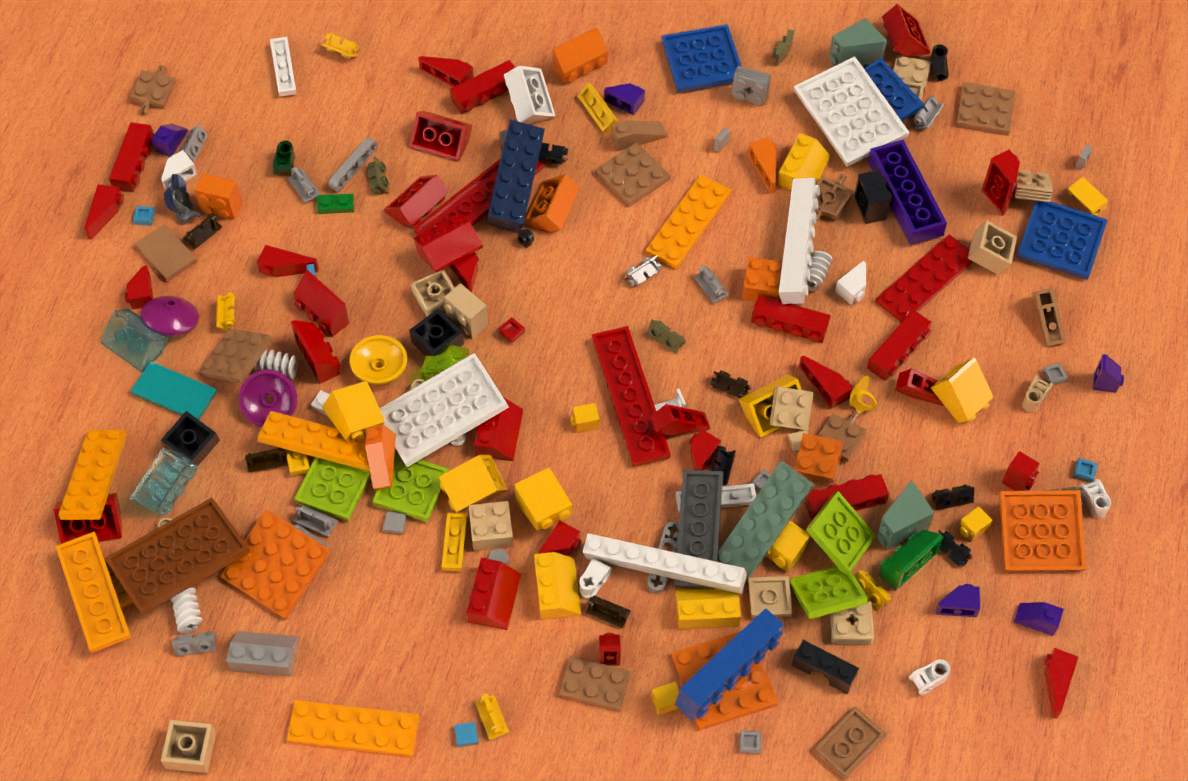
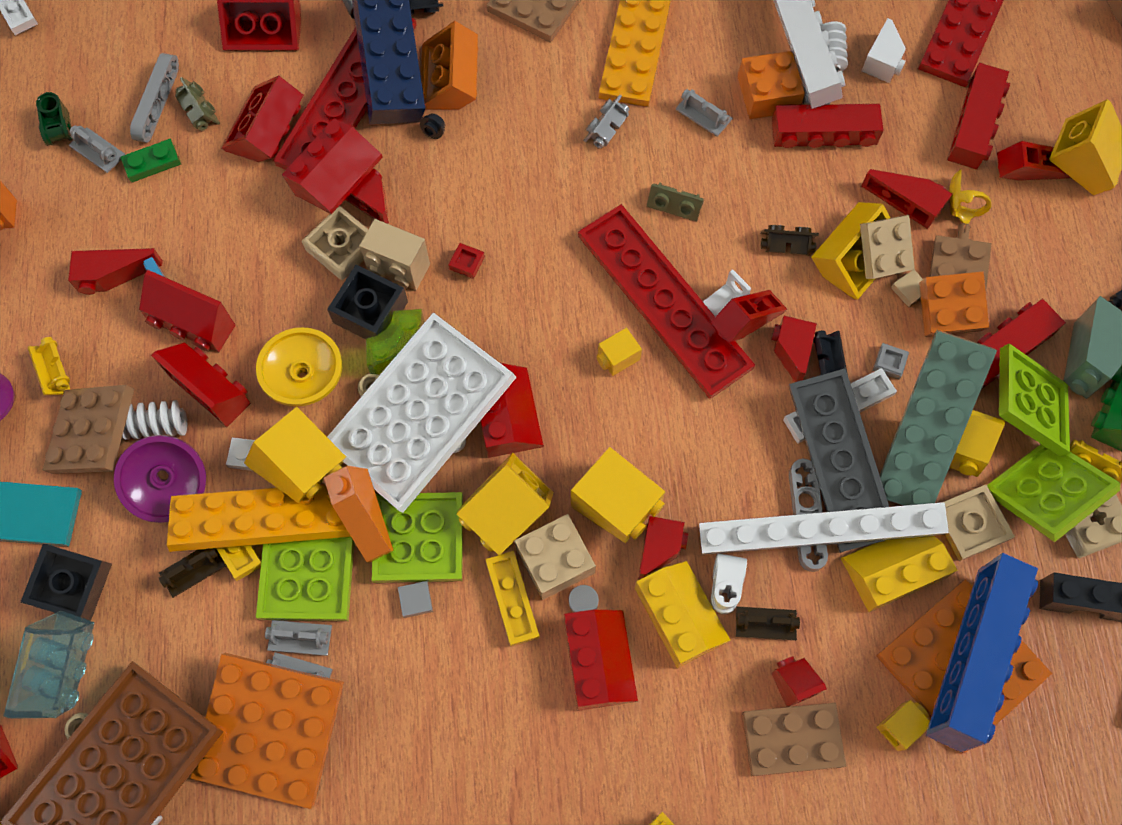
camera: 20 degrees left, 10 degrees up
(750, 742) = (1039, 745): light grey tile -> none

